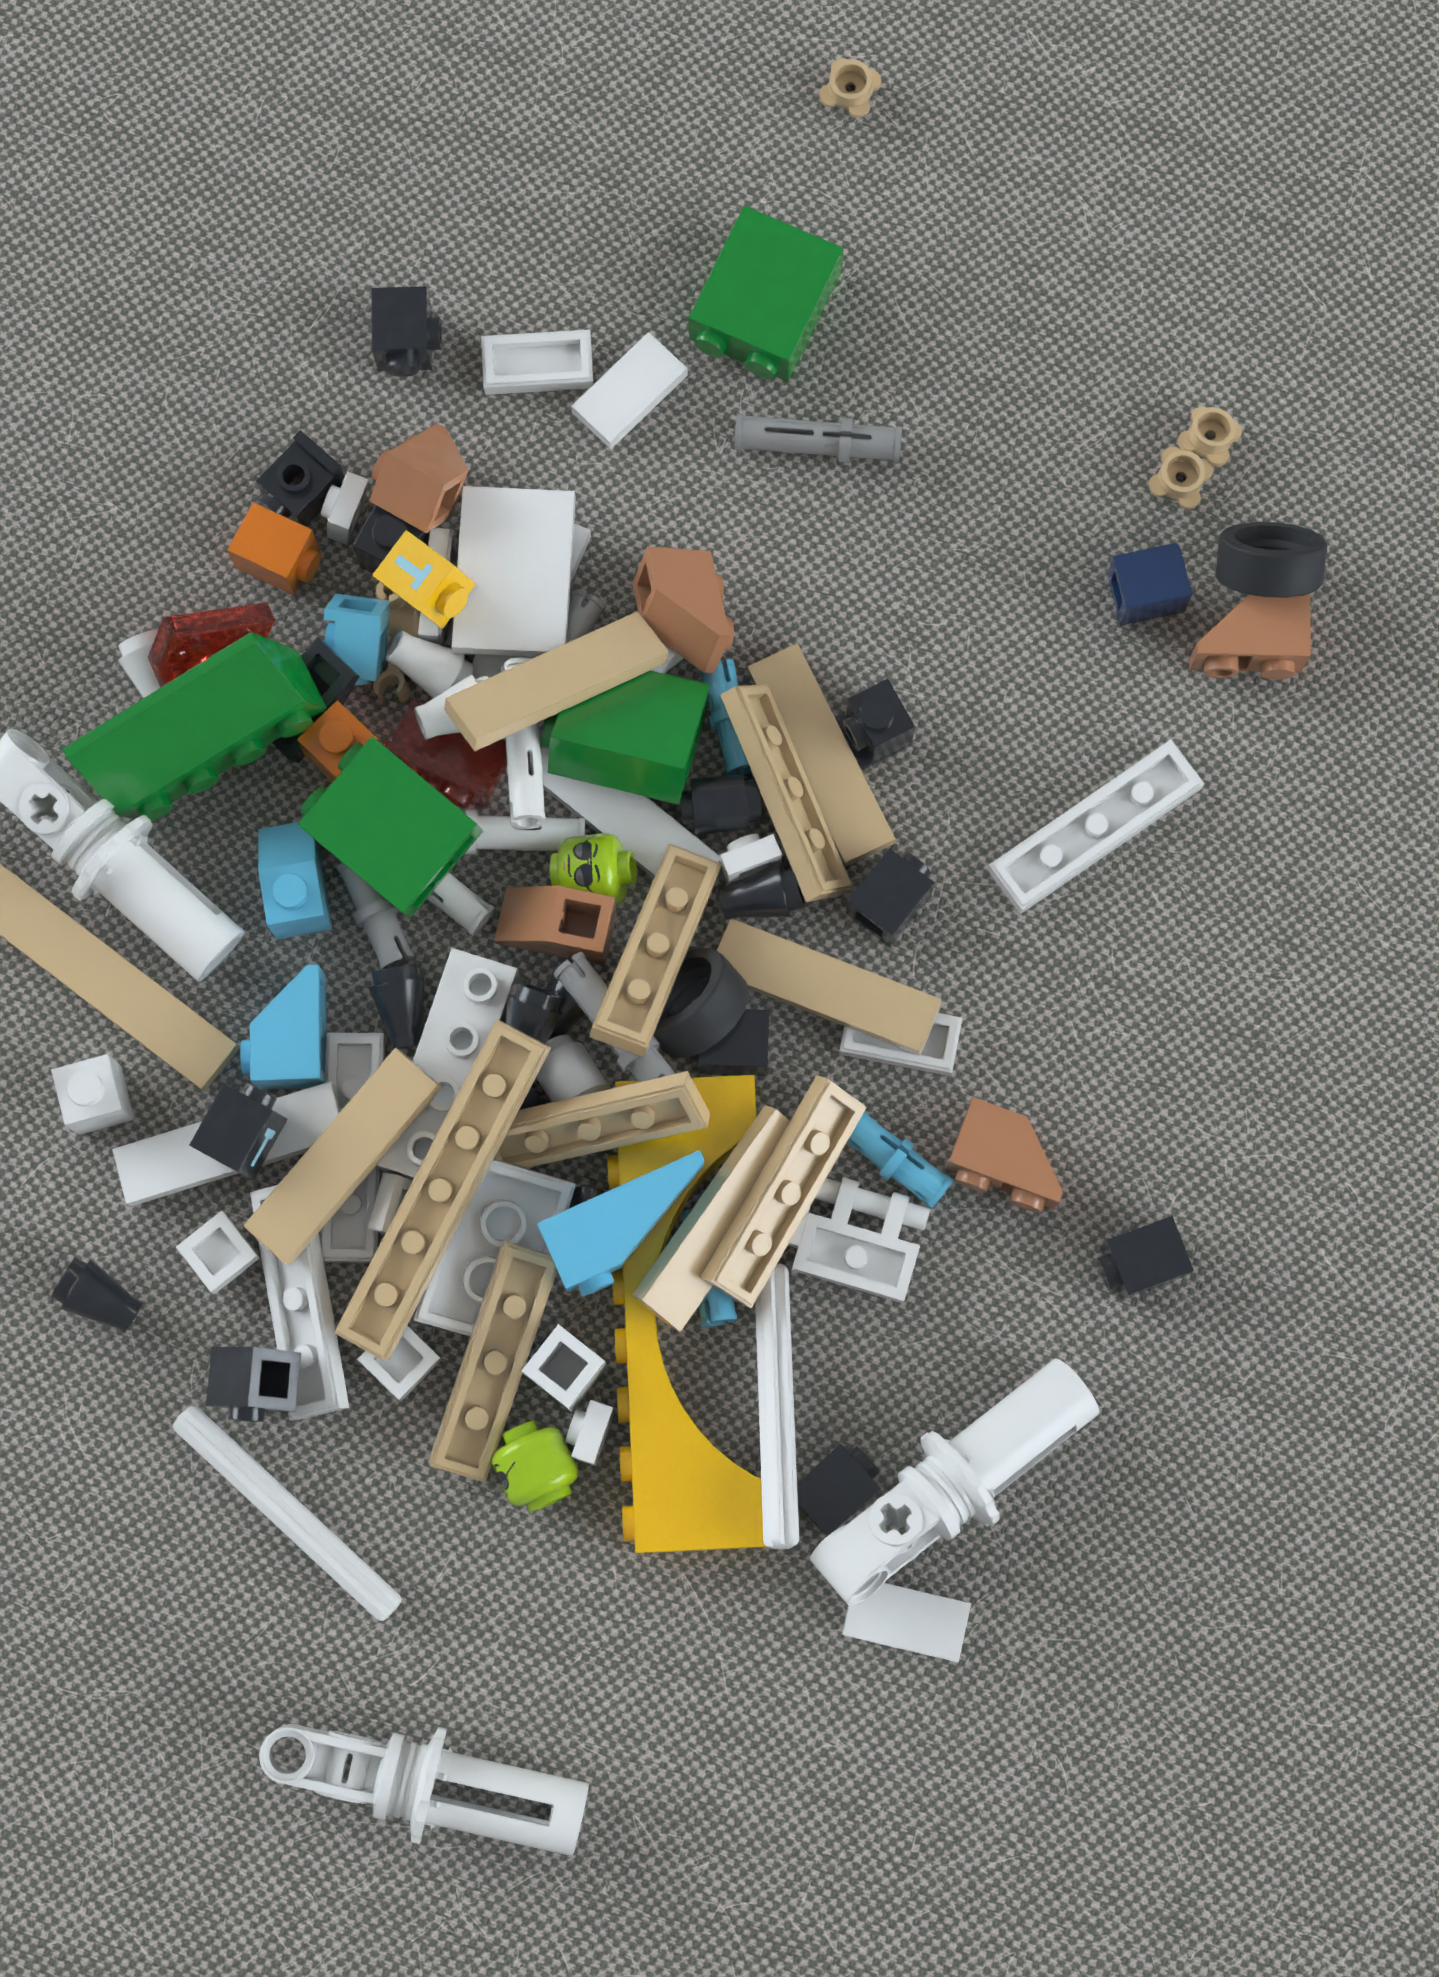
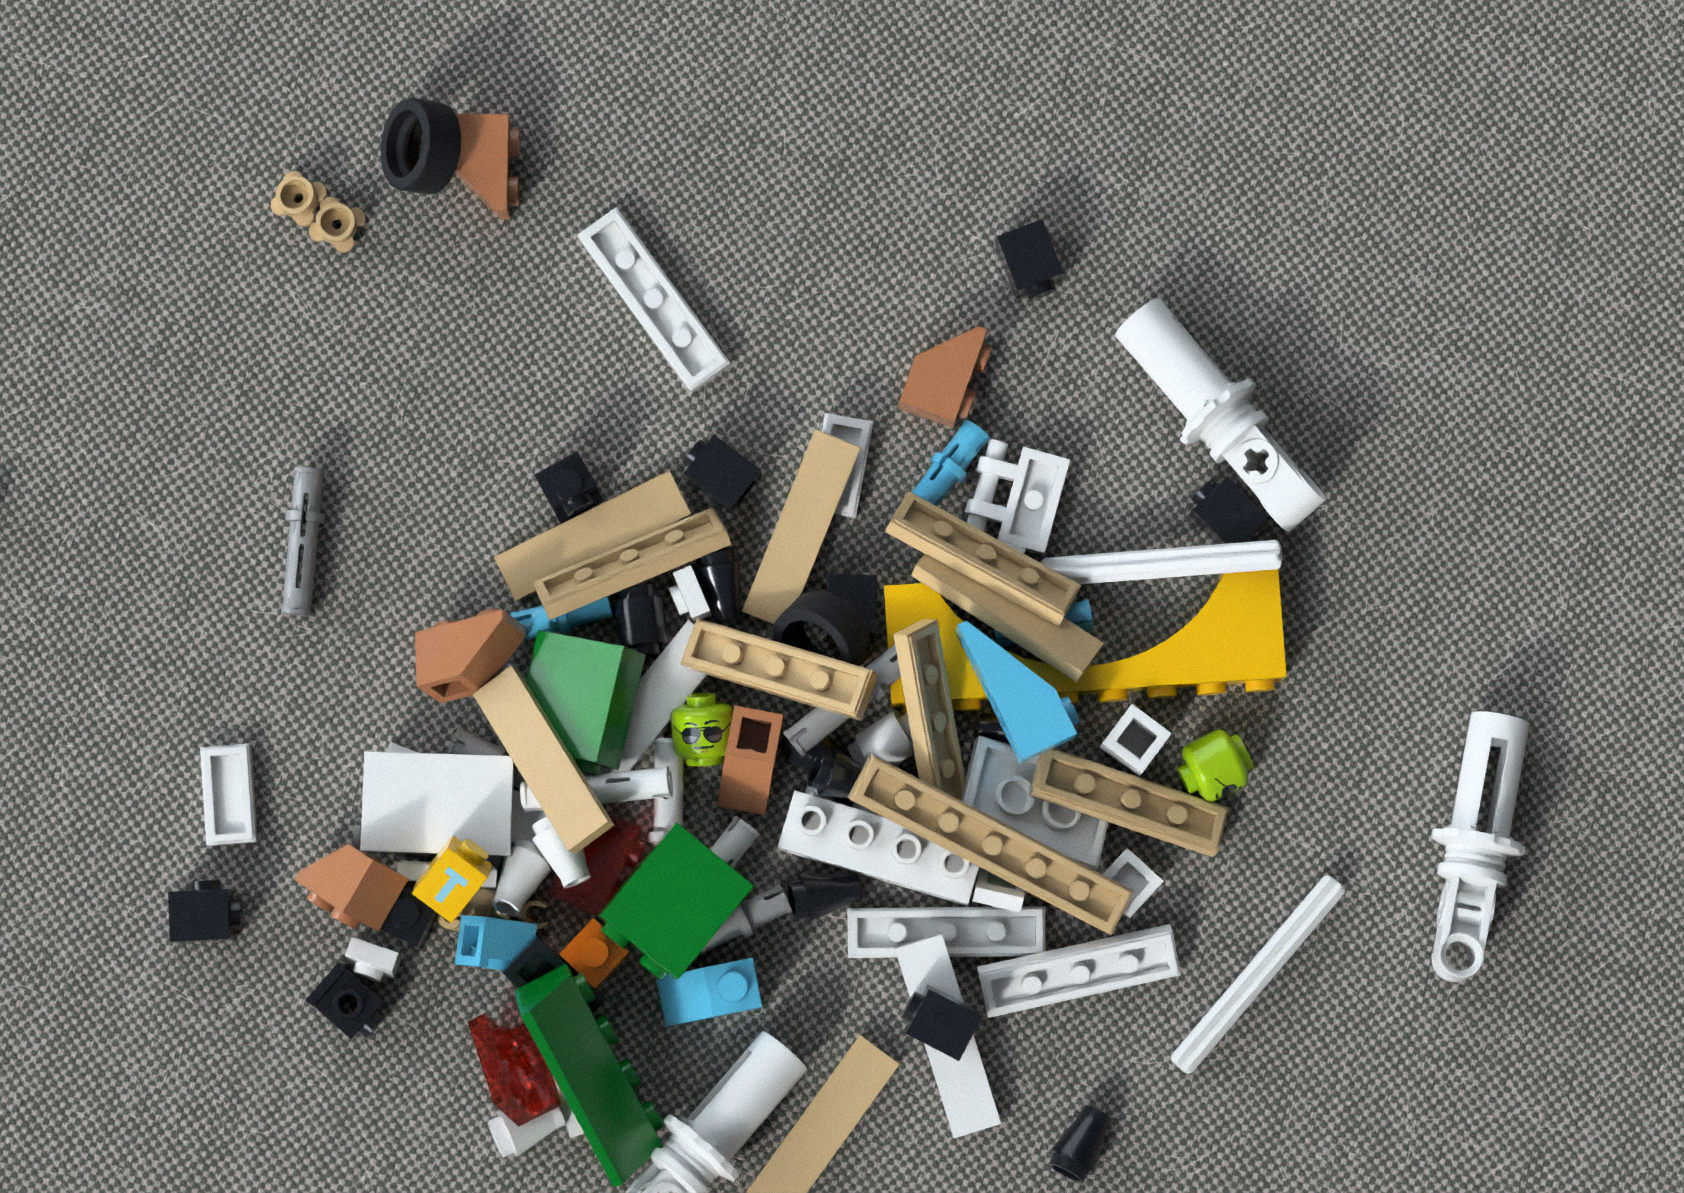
camera: 95 degrees left, 5 degrees up
(92, 1094) = (908, 1156): white brick -> none
(218, 1252) = (1041, 1042): white plate -> none
(253, 1381) = (1152, 1003): black brick -> none
(275, 549) = (412, 1020): orange brick -> none
(289, 1036) = (854, 987): medium azure slope -> none
(342, 1156) = (962, 932): tan tile -> none
(589, 1432) = (1185, 720): white plate -> none
(629, 390) = (256, 711): white tile -> none
(765, 294) = (169, 590): green brick -> none
(910, 1621) = (1332, 452): white tile -> none
(1149, 584) = (438, 252): dark blue panel -> none

